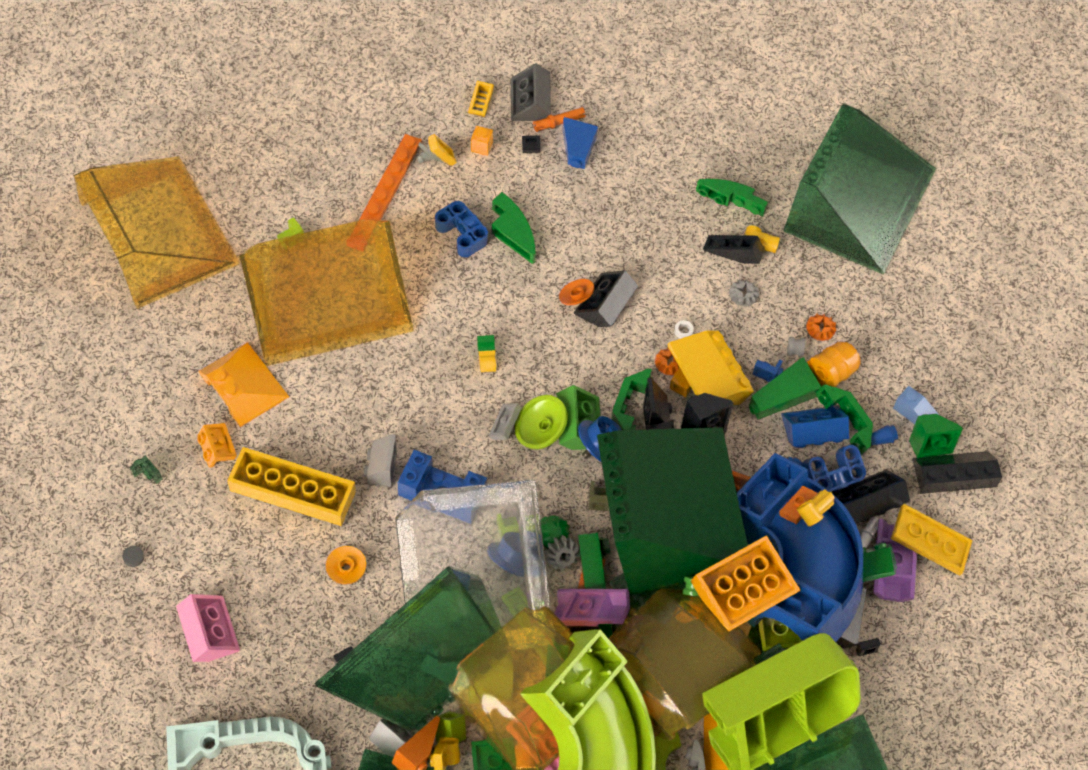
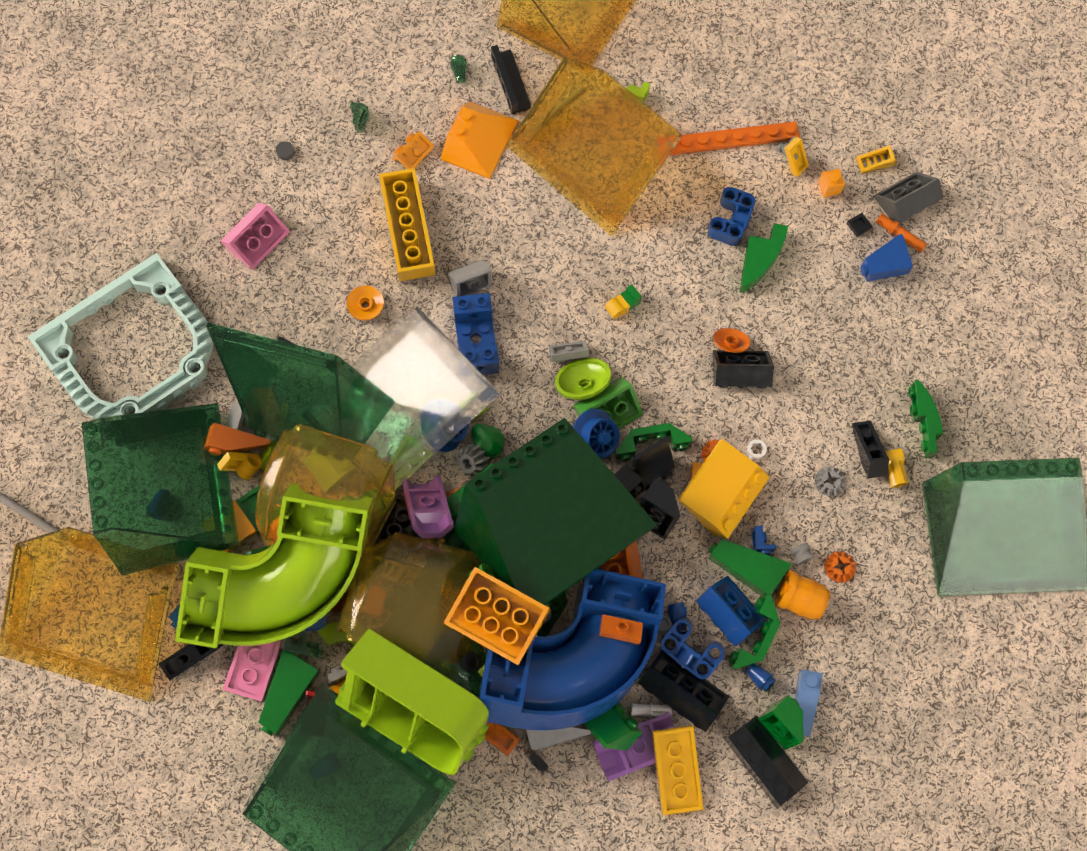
camera: 60 degrees right, 10 degrees up
(158, 360) = (458, 65): none -> clear green cone
(201, 326) = (510, 80): none -> black panel
(812, 510) = (617, 641): yellow piece -> none

